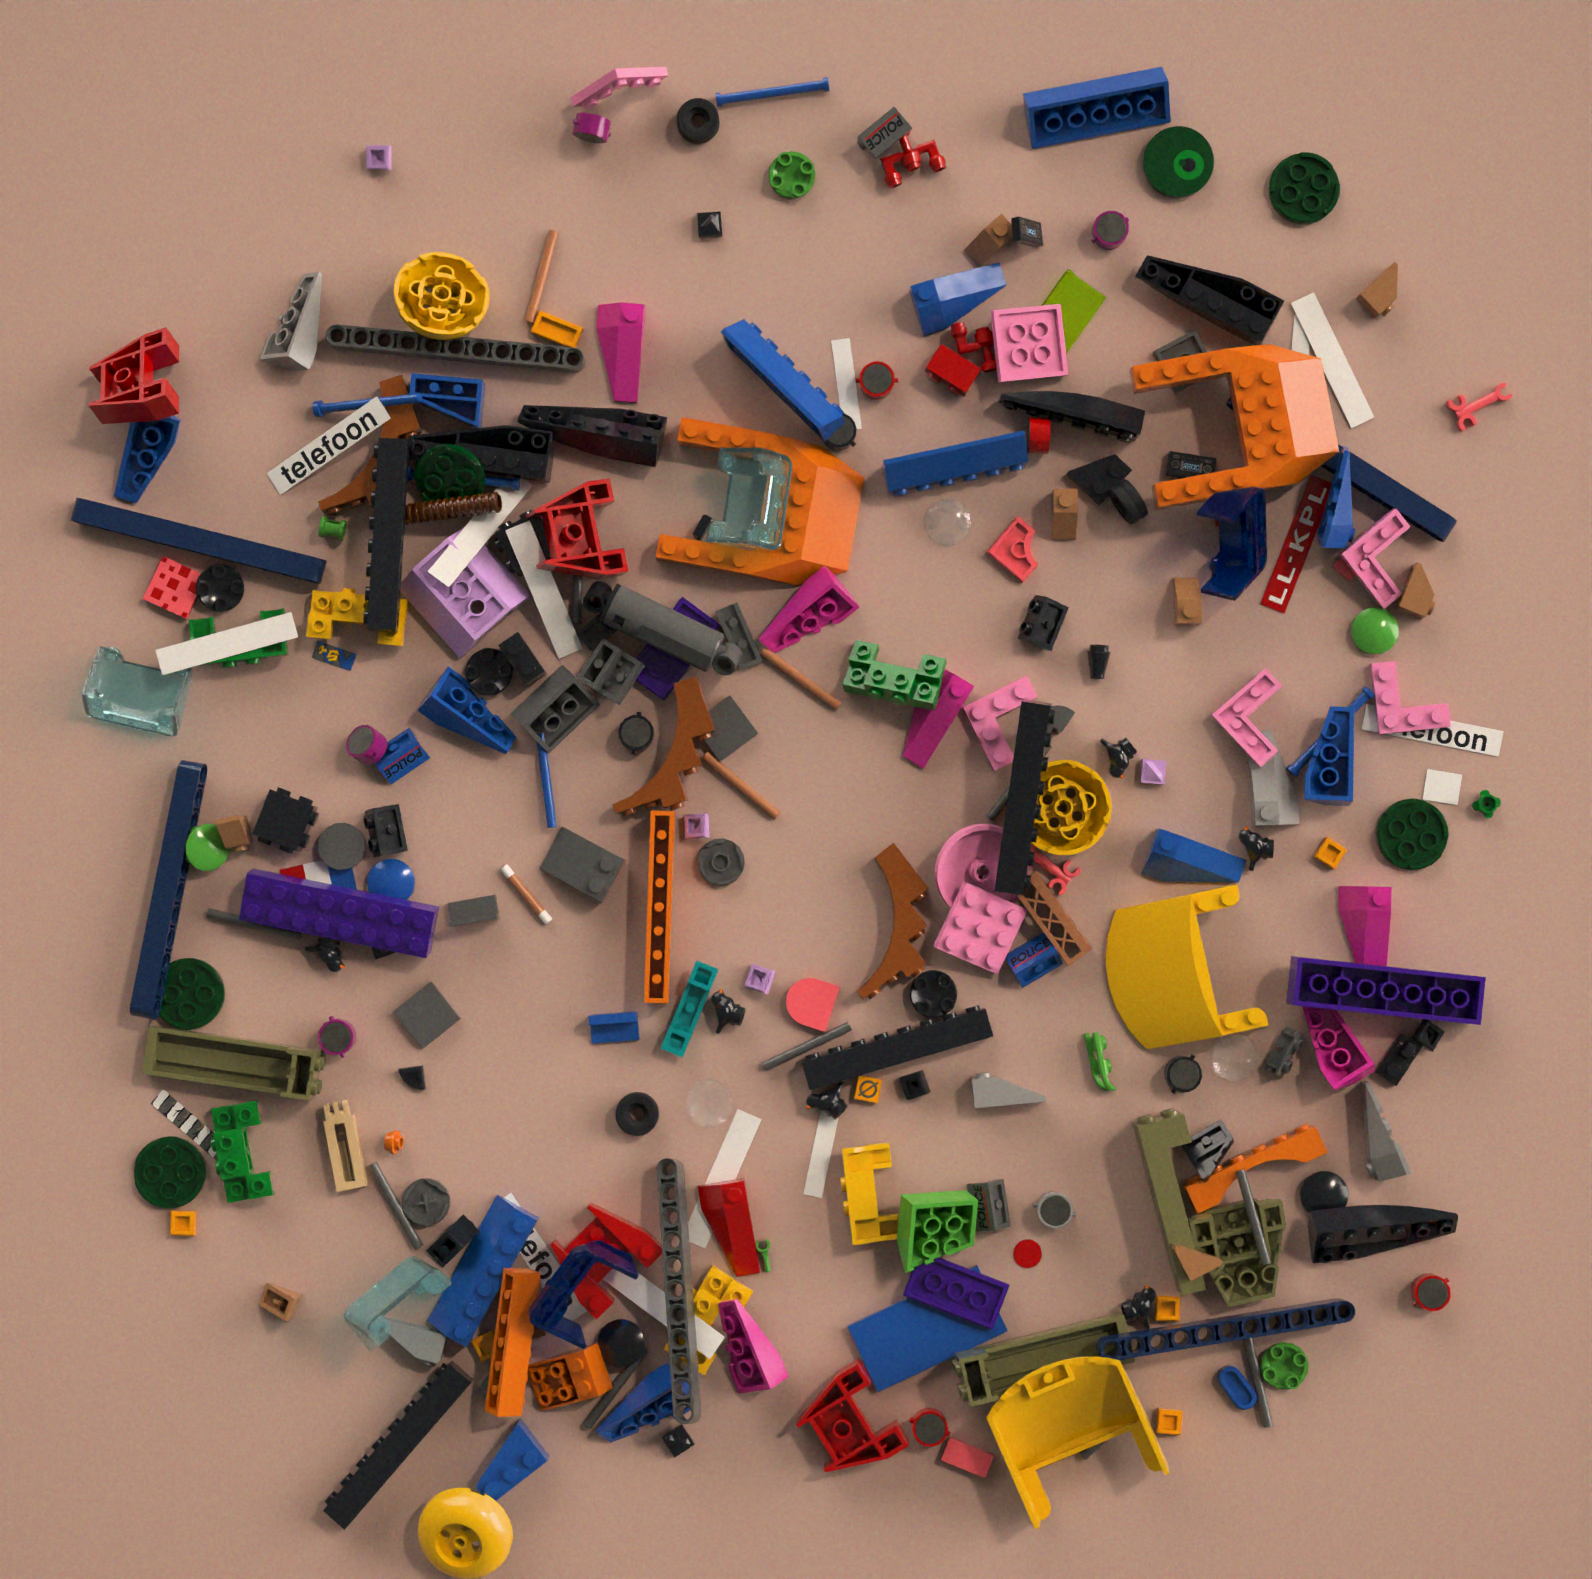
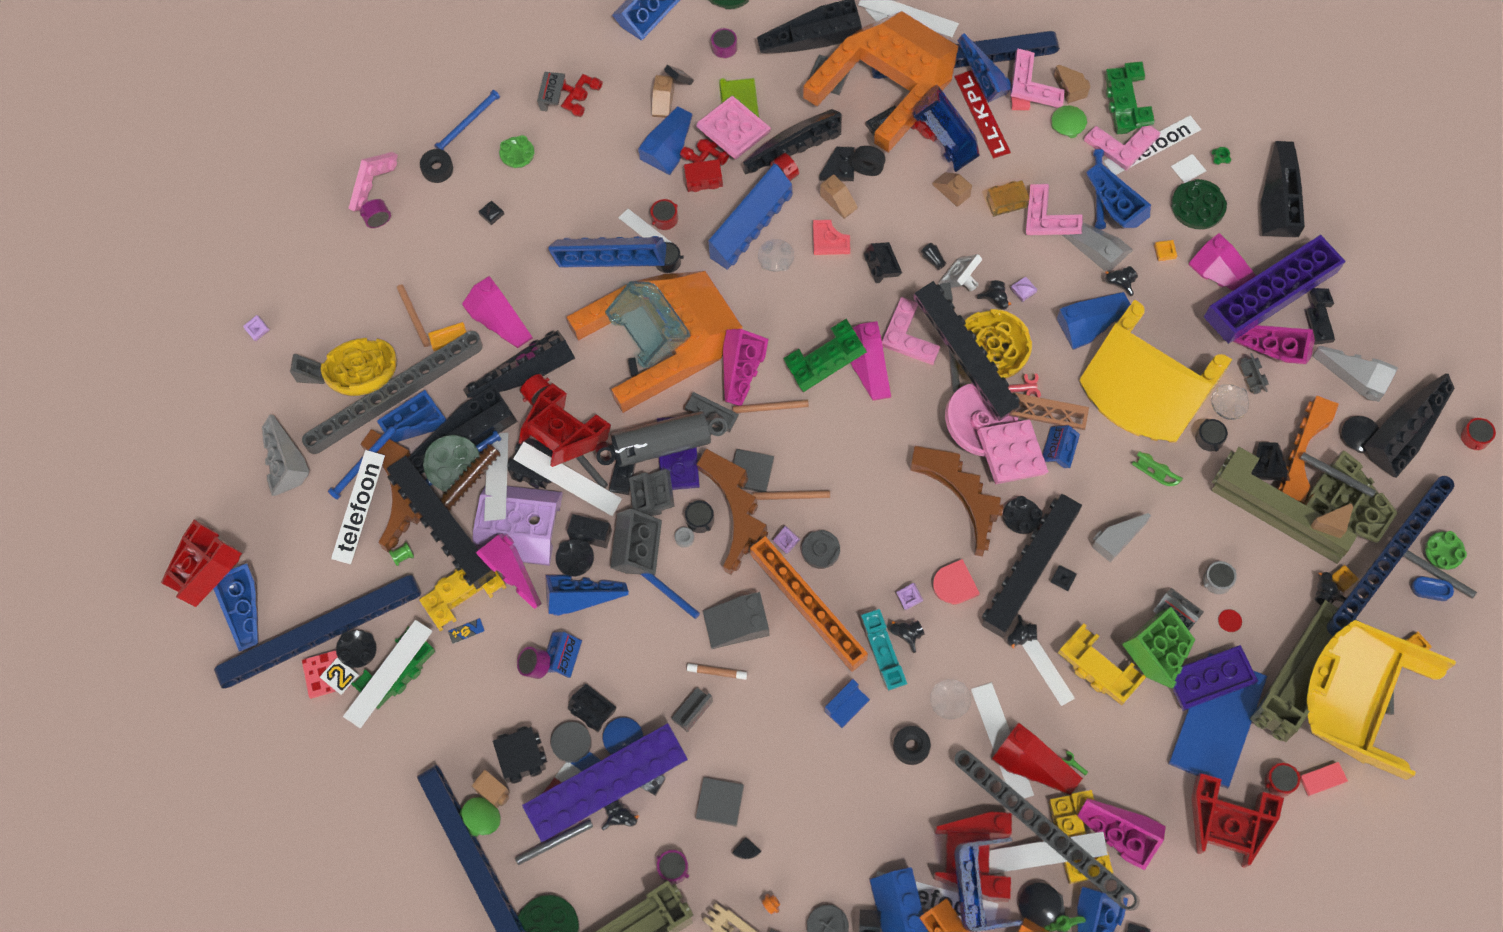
camera: 35 degrees left, 20 degrees down
(135, 694) = (352, 761): clear light blue windscreen -> none
(184, 602) = (339, 676): none -> sticker
(391, 251) = (306, 370): none -> dark grey slope
(416, 625) = (503, 556): none -> dark pink wedge
(591, 467) = (533, 387): none -> red piece
(606, 739) = (684, 537): none -> light grey tile
(624, 1378) = (1064, 923): none -> bright green piece
(806, 1046) = (976, 613): dark grey bar -> none
(868, 1088) = (1038, 605): light orange tile -> none
(1103, 704) = (961, 272): none -> white tile
(1229, 662) = (1007, 198): none -> clear yellow brick
(1450, 655) = (1122, 98): none -> green bracket
(1502, 896) = (1282, 195): none -> black wedge

